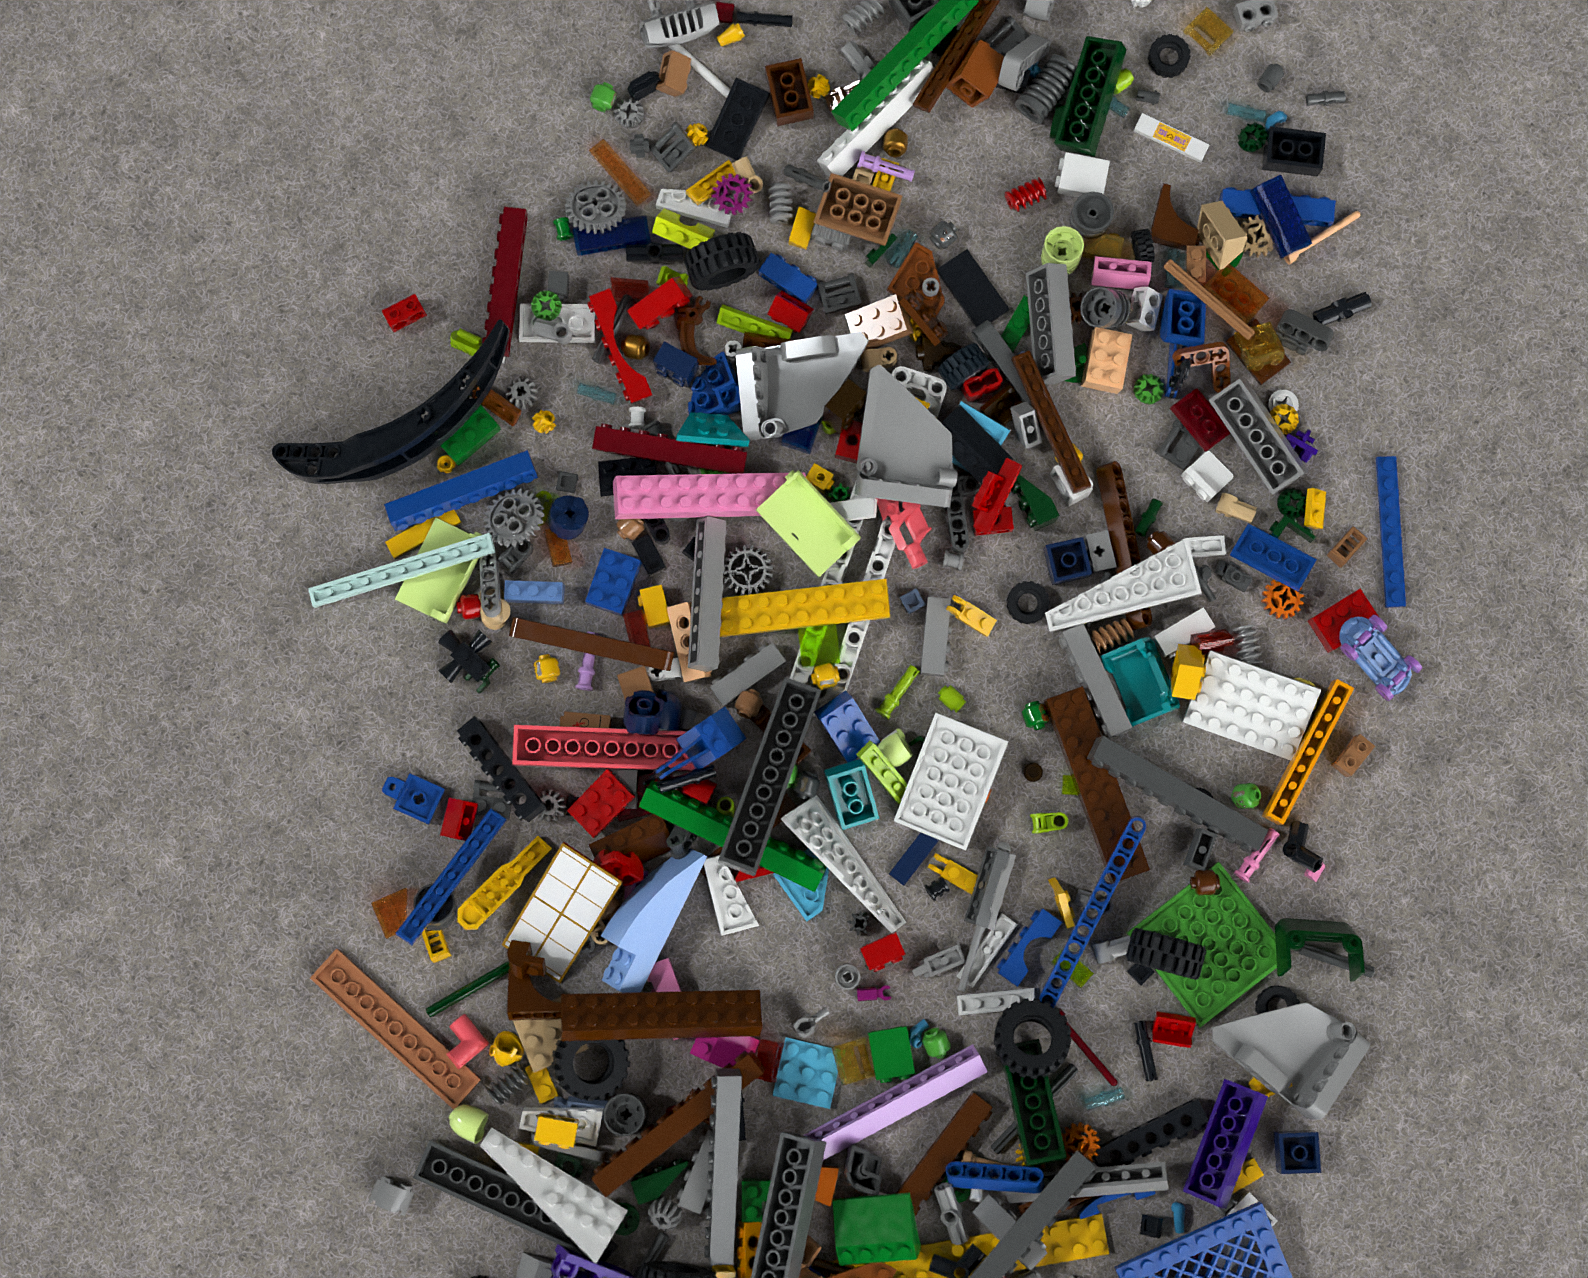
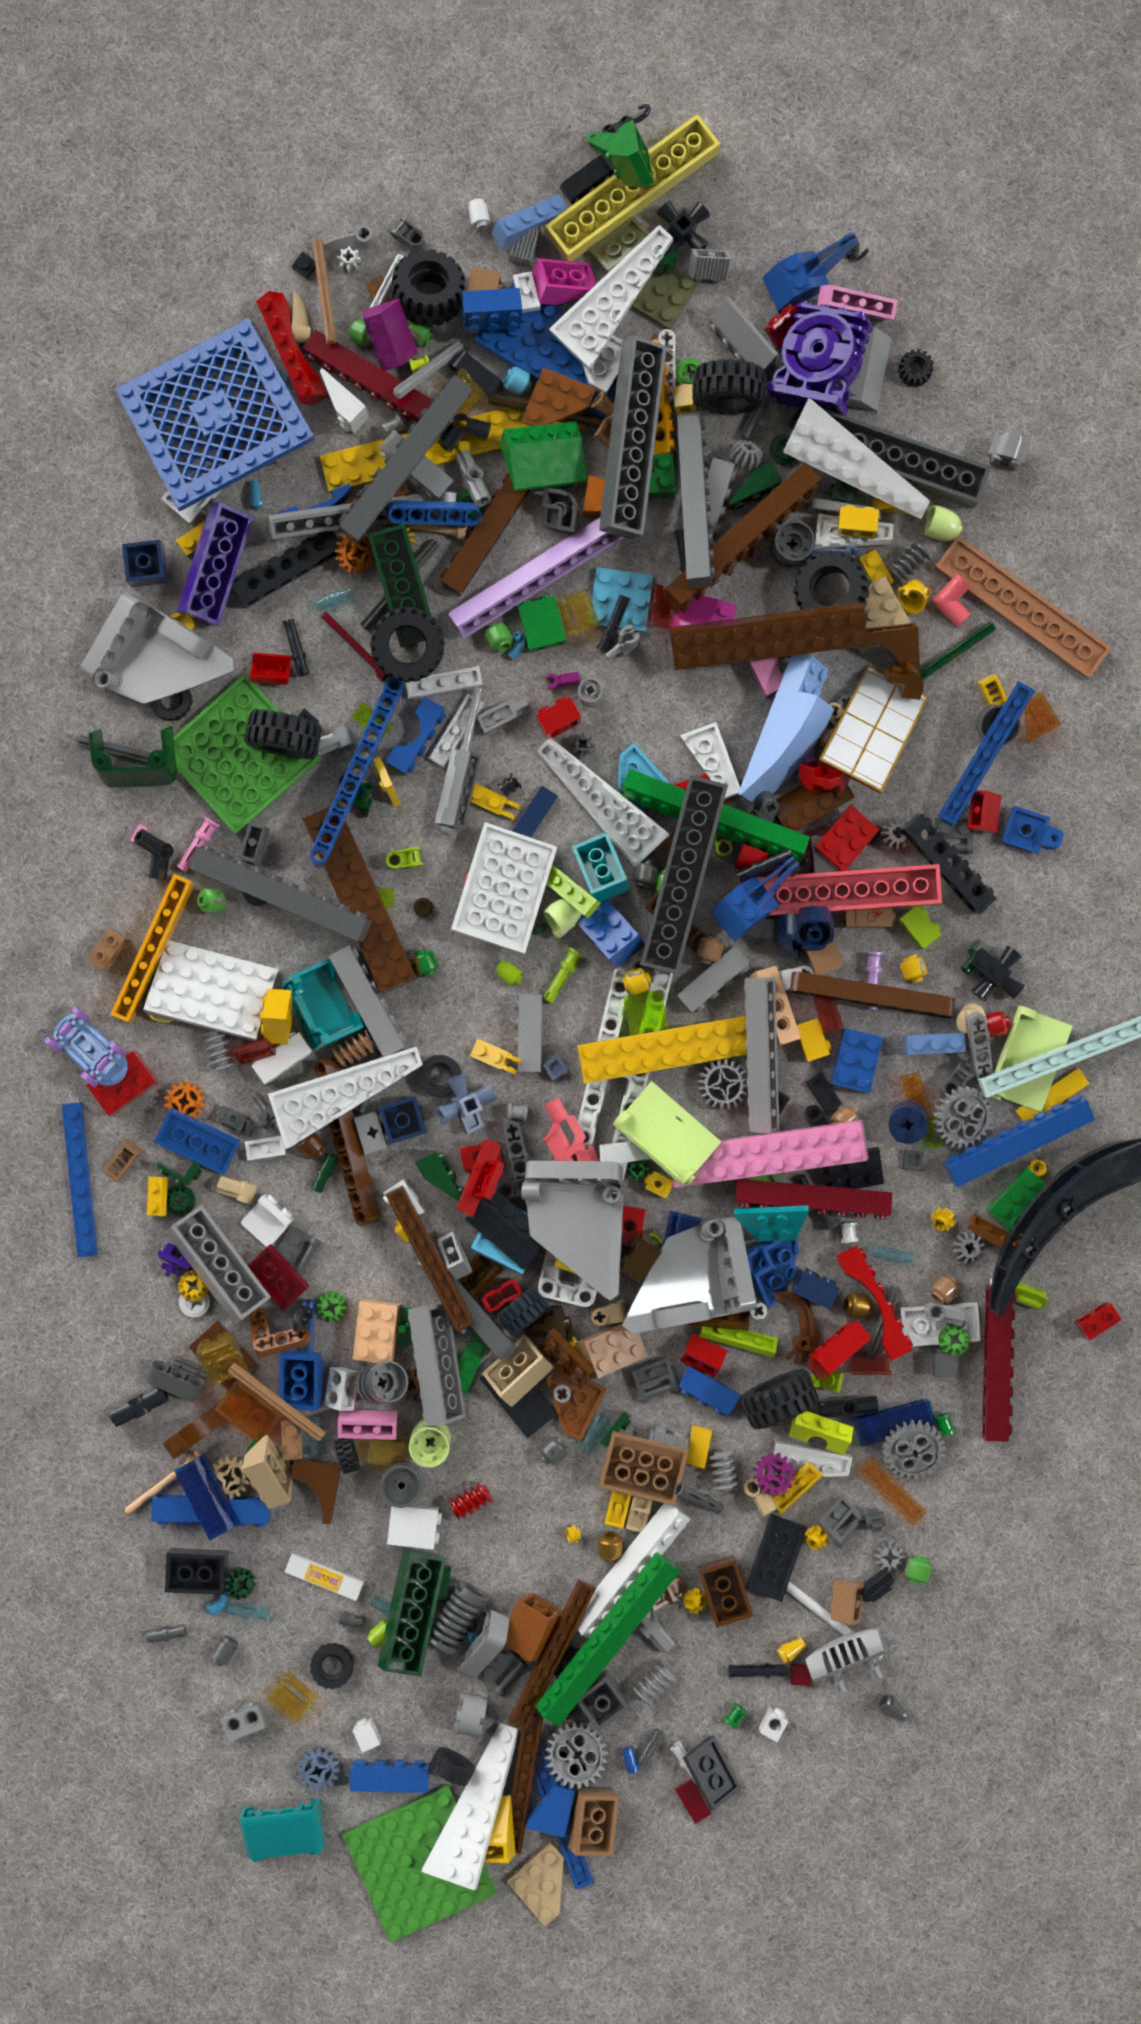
camera: 175 degrees right, 5 degrees up
(500, 886) = (936, 749): yellow piece -> none
(535, 708) = (920, 927): none -> lime brick
(549, 354) = (945, 1290): none -> medium nougat head
(821, 1037) = (610, 633): none -> black pin
(876, 161) = (629, 1517): lavender pin -> none
(929, 156) = (573, 1534): none -> yellow plate
(970, 310) = (518, 1372): none -> tan slope
(1004, 571) = (465, 1104): none -> sand blue brick
(1086, 886) = (362, 799): none -> dark green piece
(1151, 1226) = (281, 484): black plate -> none
(1205, 882) = (248, 811): reddish brown head -> none
(1293, 278) = (193, 1432): none -> reddish brown arch

